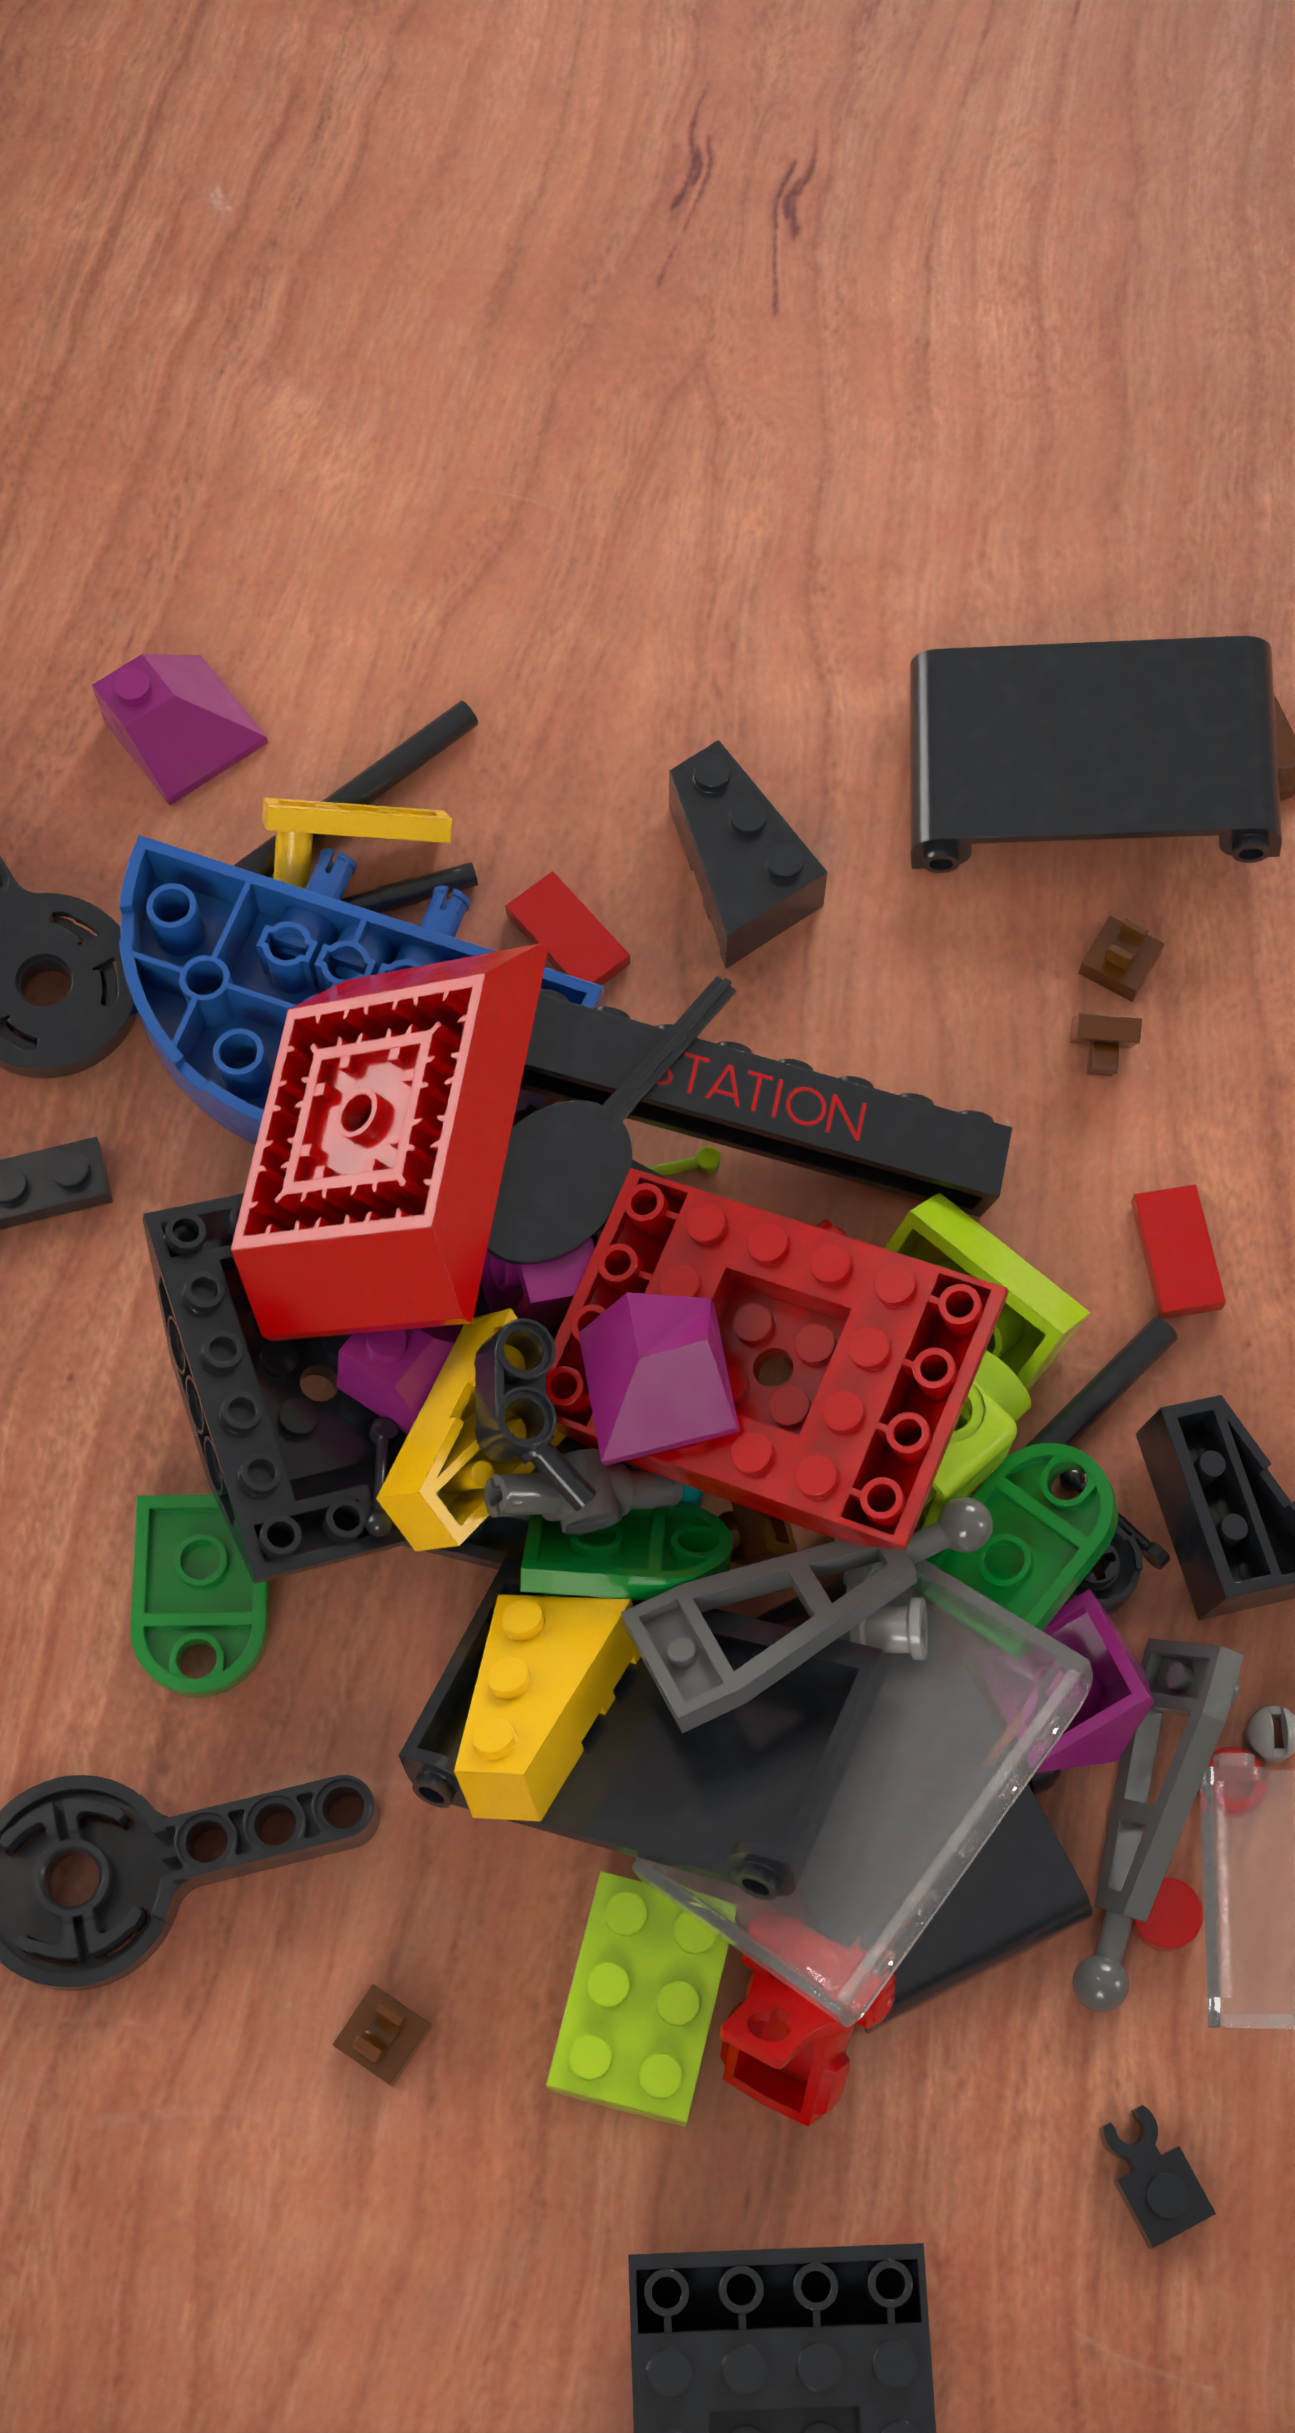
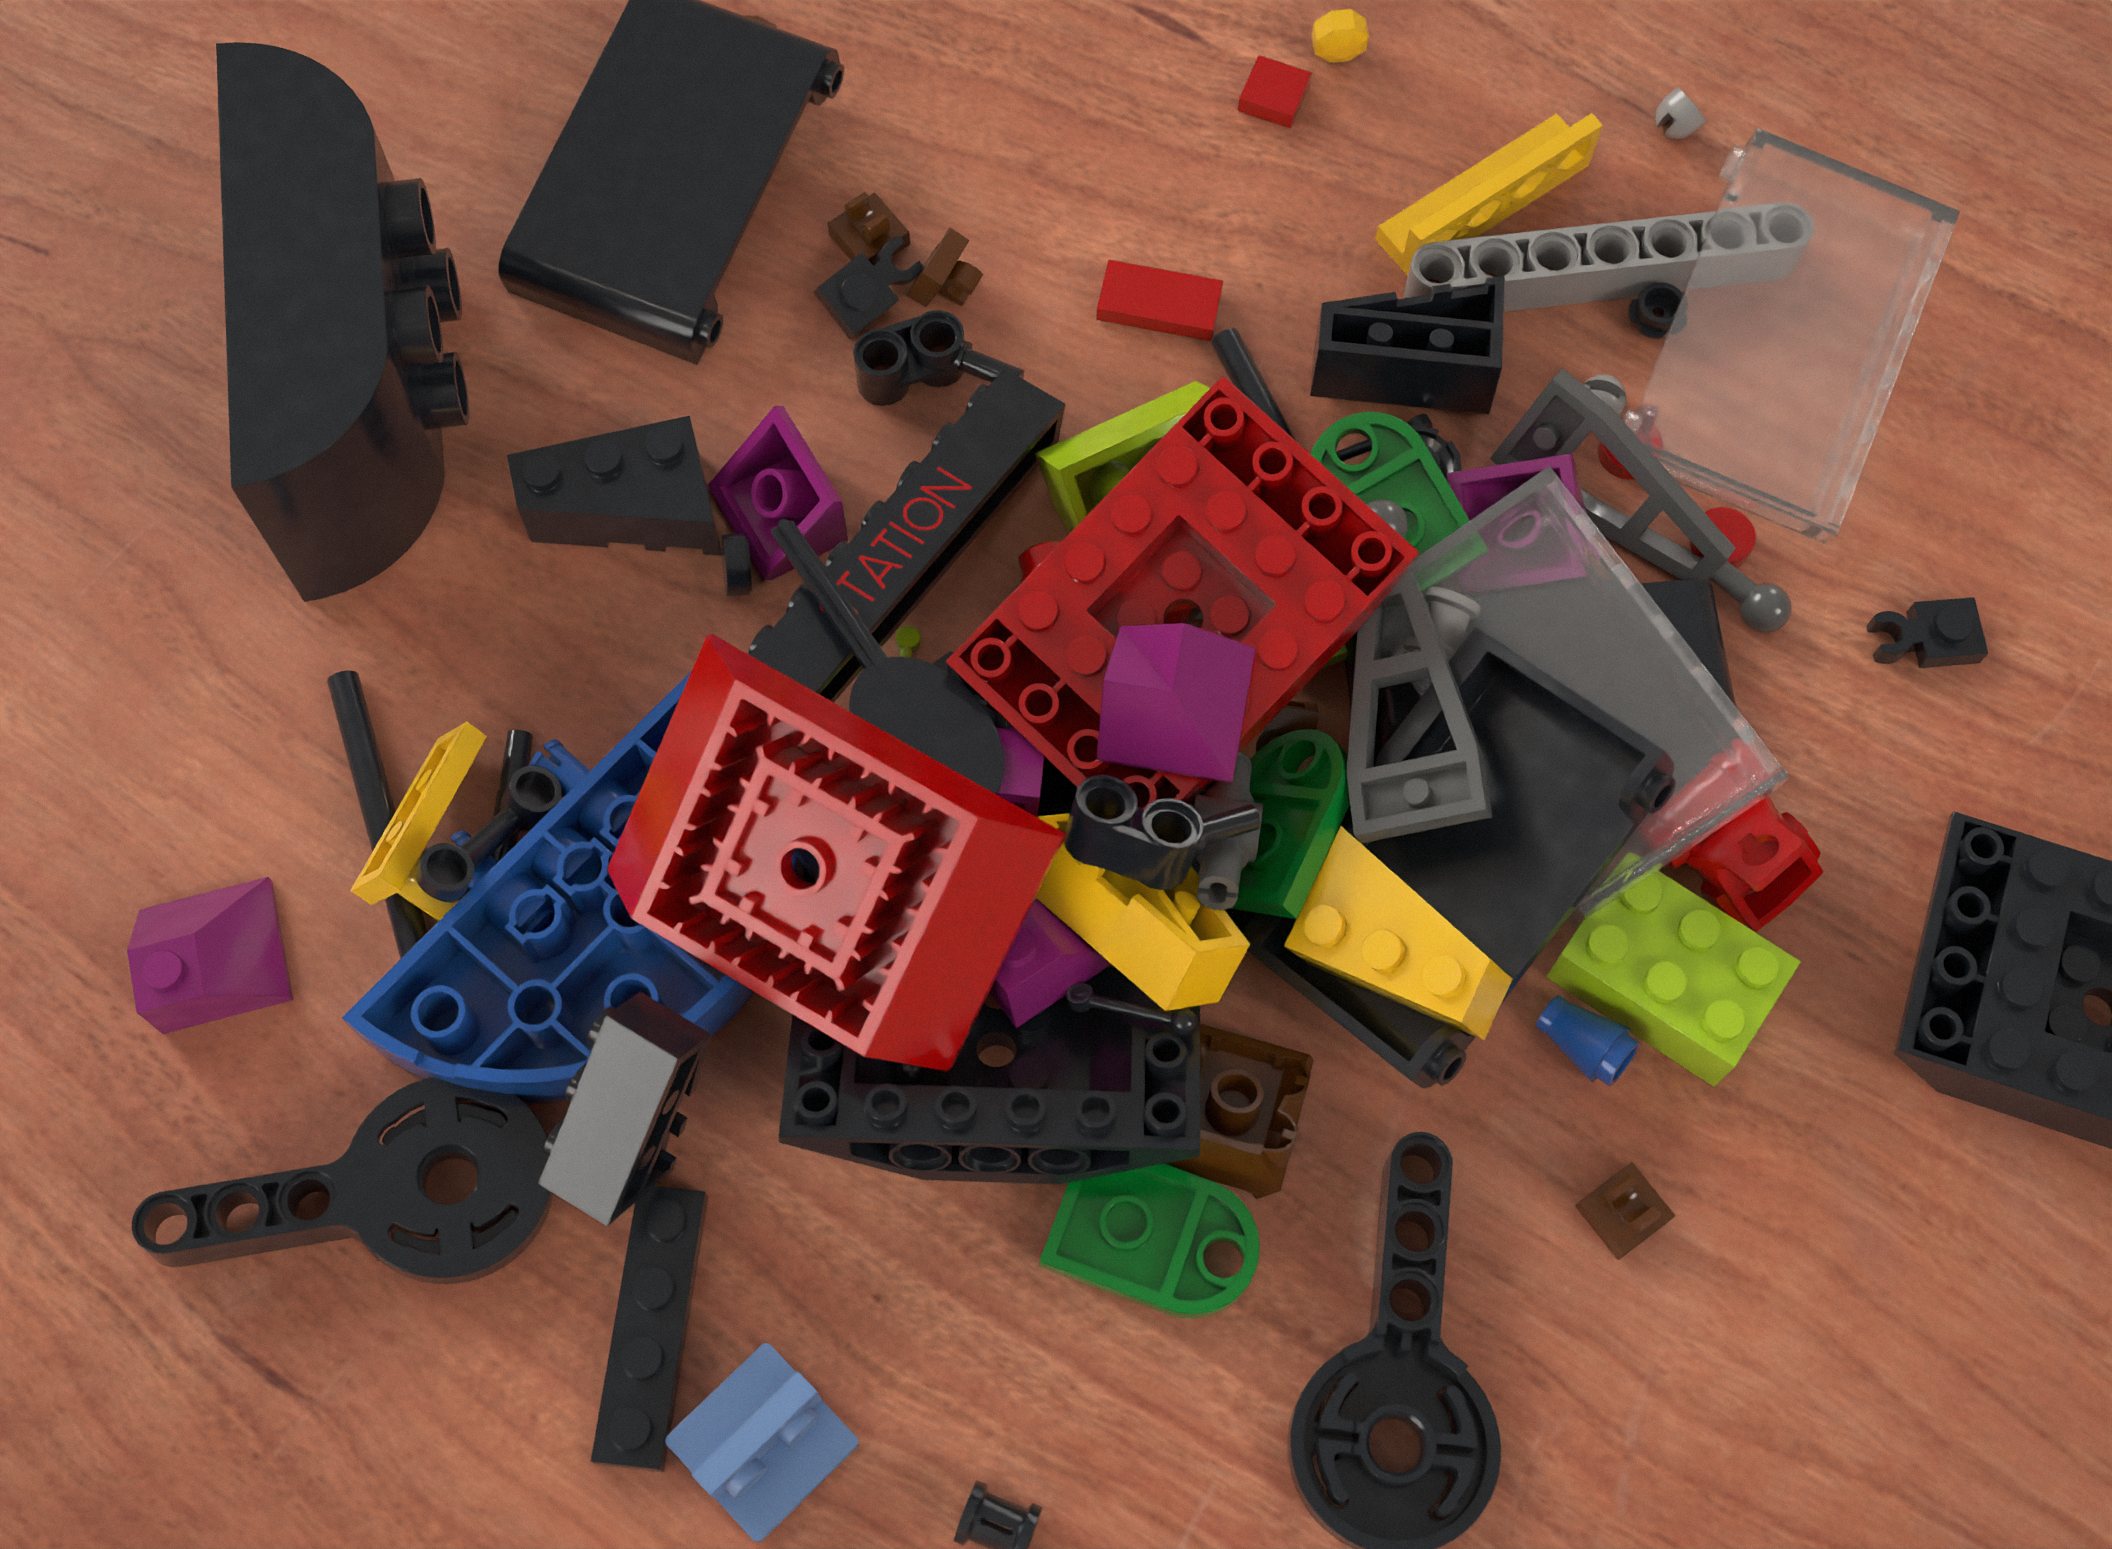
camera: 70 degrees left, 0 degrees up
(124, 1083) = (624, 1108): none -> wedge
(293, 854) = (448, 869): none -> black bar
(351, 1623) = (1247, 1110): none -> reddish brown slope
(540, 1944) = (1589, 1040): none -> blue cone
(570, 932) = (623, 674): red tile -> none
(701, 975) = (736, 564): none -> black tile
(757, 537) = (329, 324): none -> black brick
(796, 990) = (775, 480): none -> magenta slope
(1003, 1039) = (906, 349): none -> black beam
(1049, 973) = (862, 291): none -> black plate

